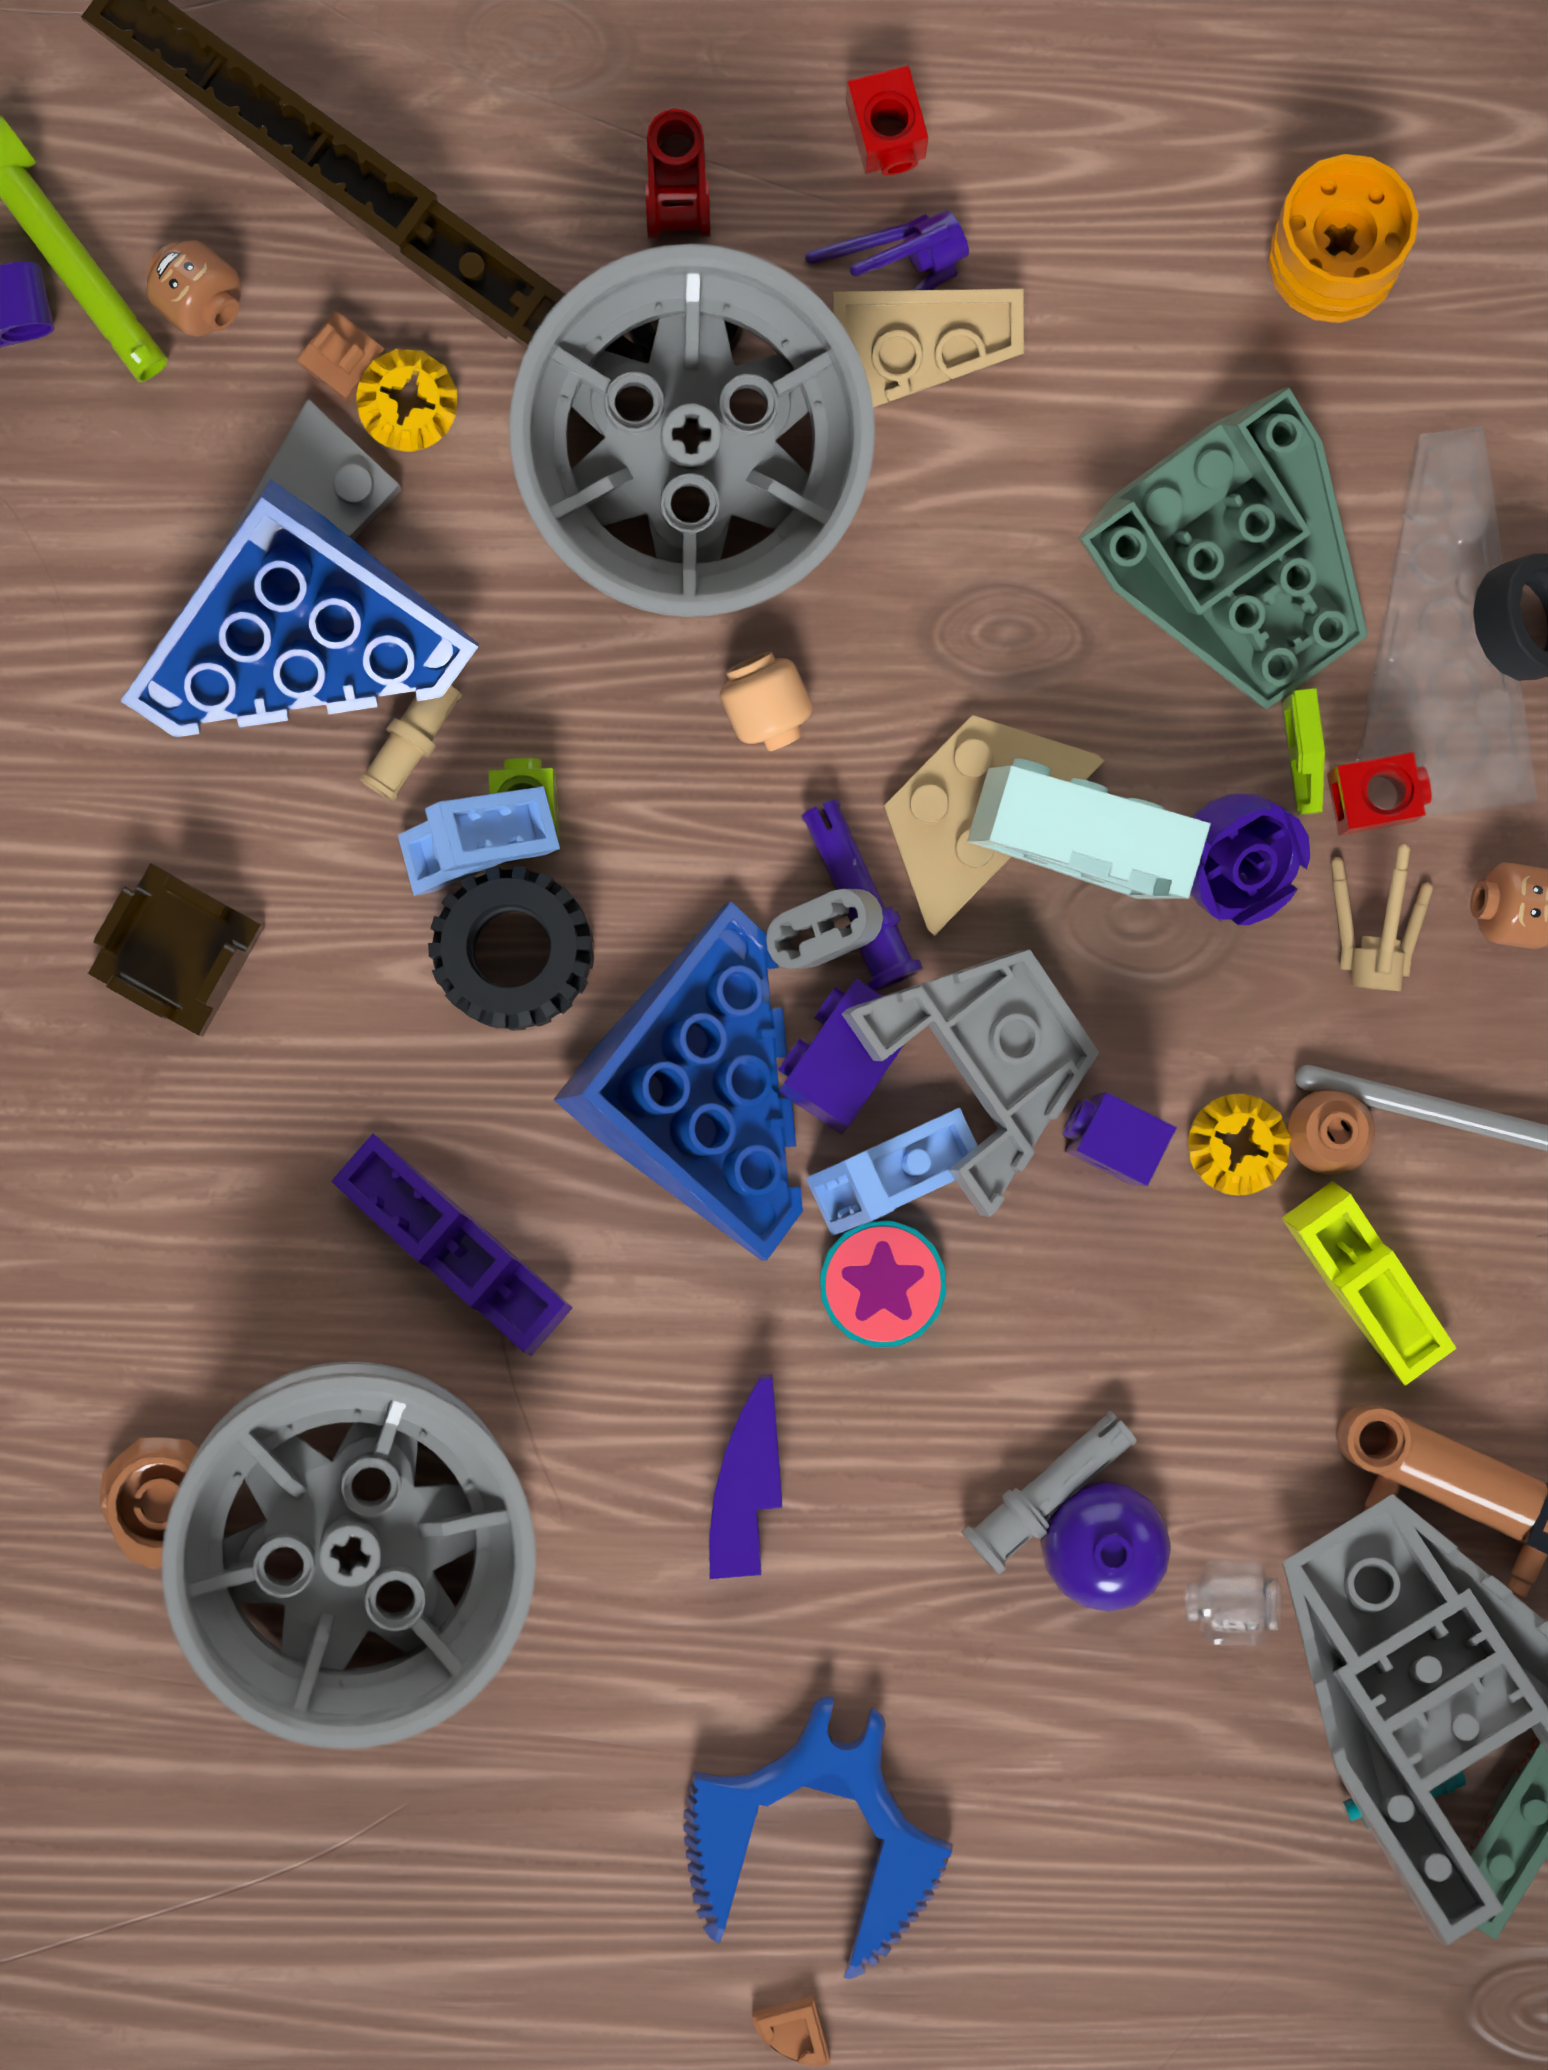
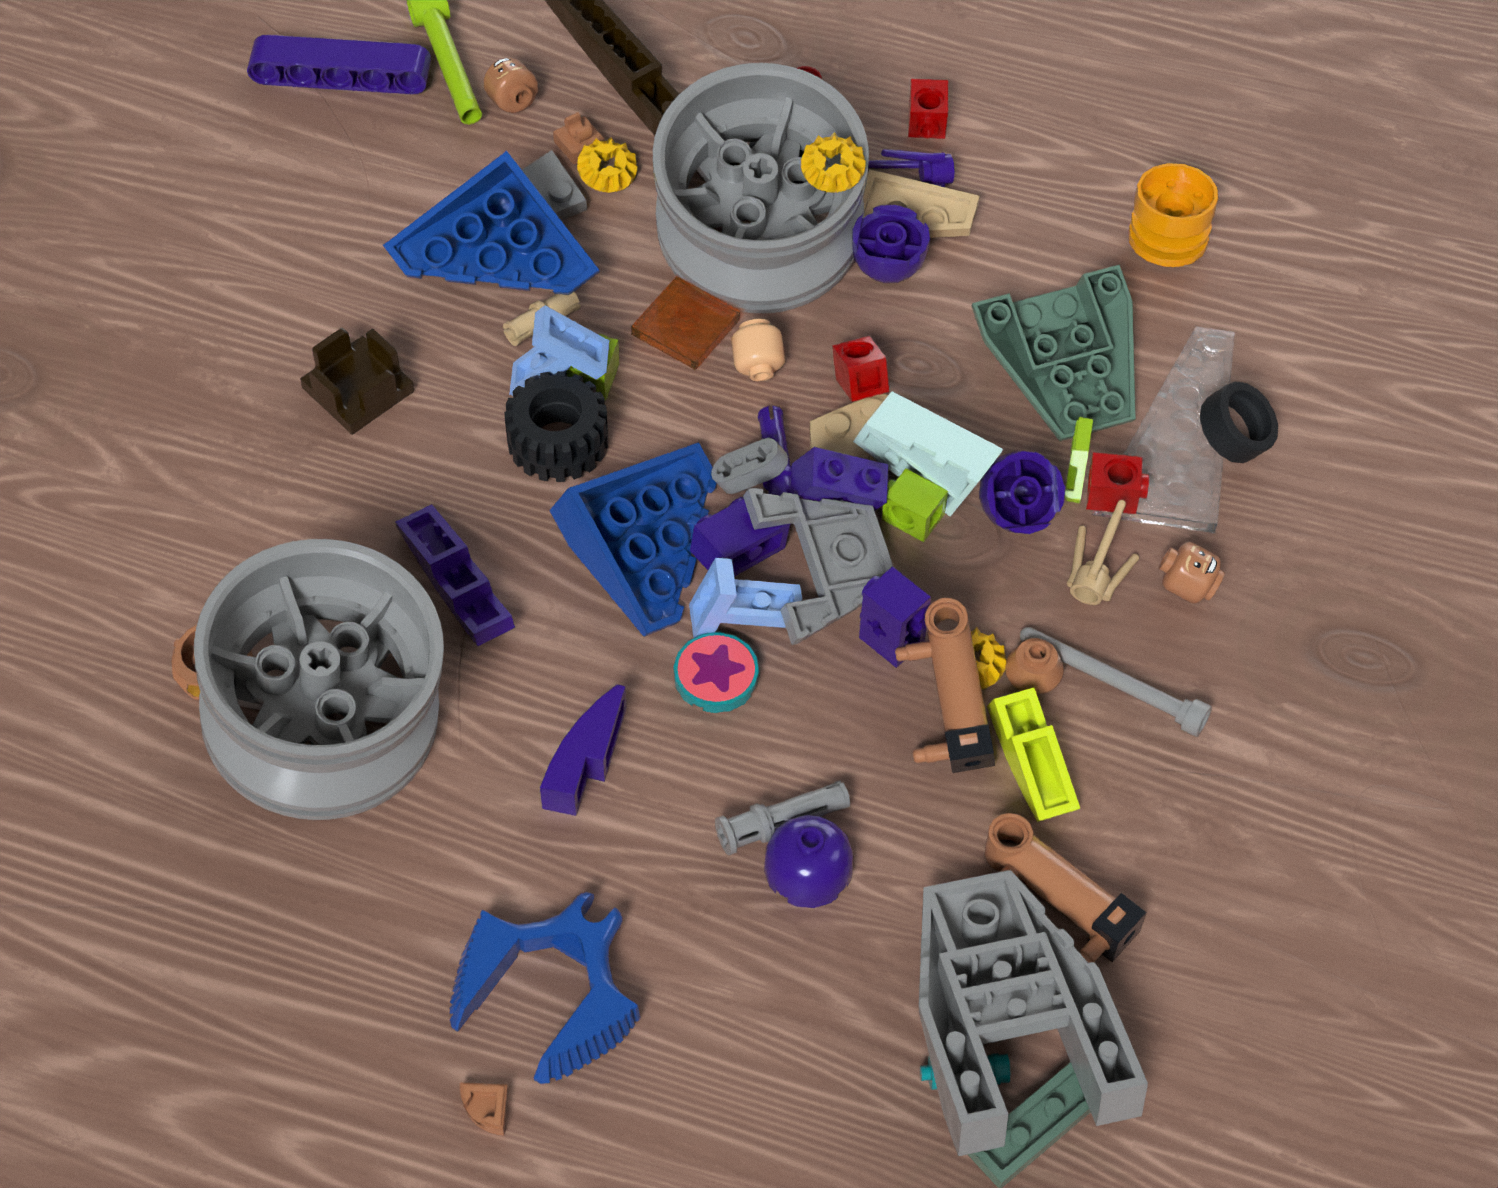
camera: 15 degrees right, 30 degrees down
(634, 672) = (685, 323): none -> clear orange plate
(788, 435) = (838, 177): none -> yellow gear
(921, 441) = (890, 243): none -> dark purple cylinder
(948, 710) = (860, 368): none -> red brick
(971, 932) = (840, 478): none -> dark purple brick
(1083, 912) = (914, 504): none -> lime brick
(1235, 1603) = (884, 914): clear head -> none
(1243, 1227) = (958, 690): none -> nougat piece

